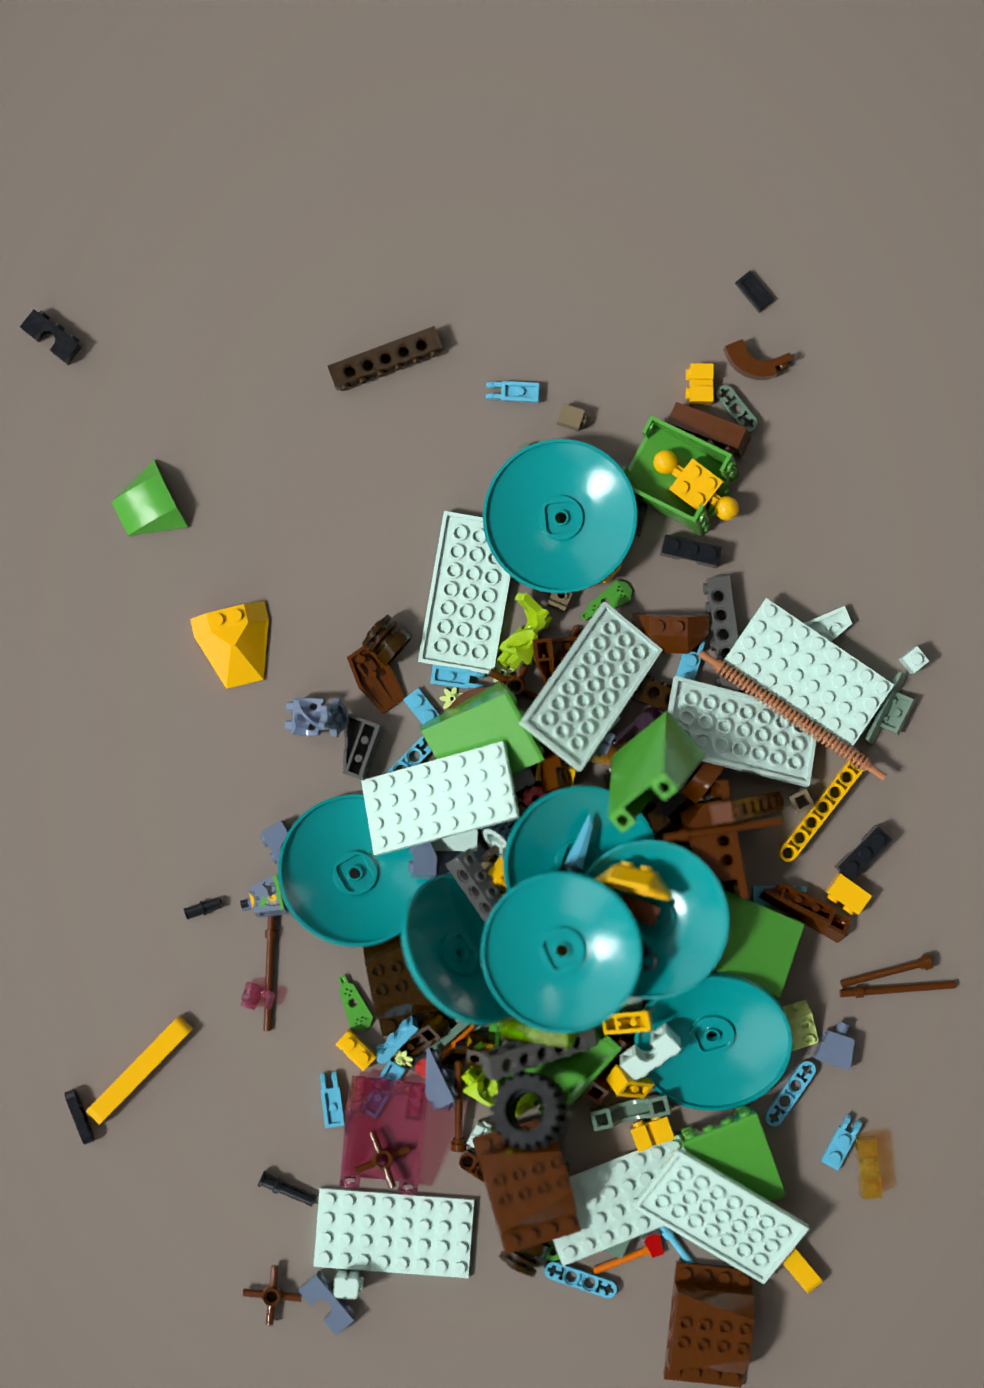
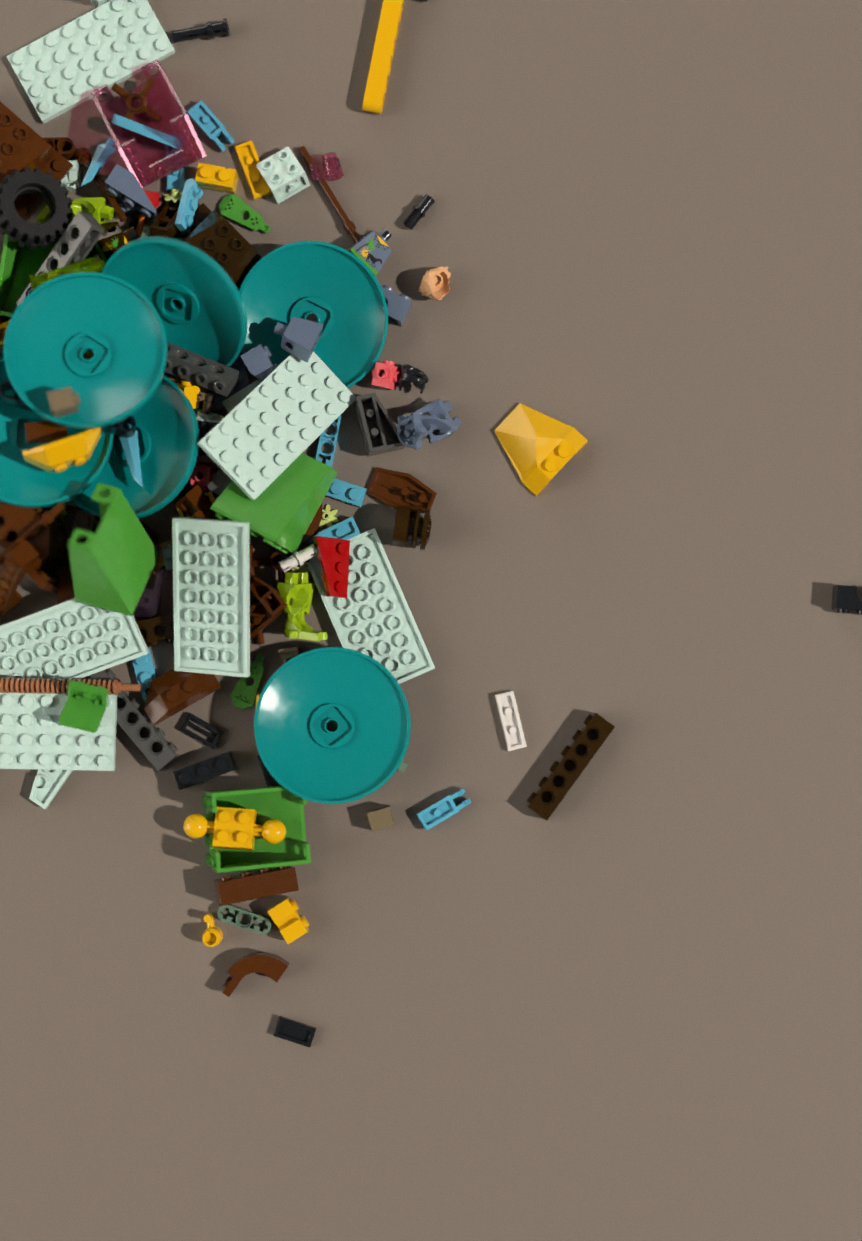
camera: 145 degrees right, 0 degrees up
(148, 504) = (687, 512): bright green wedge -> none
(230, 835) = (435, 283): none -> light nougat hair
(297, 1016) = (283, 174): none -> light aqua bracket
(301, 776) = (408, 374): none -> black piece
(320, 1038) = (248, 160): none -> yellow tile
(323, 784) = (386, 375): none -> coral brick
(375, 858) = (299, 337): none -> sand blue torso
(390, 1128) = (146, 131): none -> medium azure beam
(410, 428) = (510, 721): none -> white tile
(444, 1132) = (101, 156): none -> medium azure bar
(468, 654) = (335, 565): none -> red wing
(498, 675) = (298, 558): none -> white pin
(606, 914) = (64, 401): none -> dark tan brick
(665, 572) = (206, 724): none -> black tile
(755, 663) = (84, 706): none -> bright green bracket
(770, 413) = (213, 935): none -> yellow piece

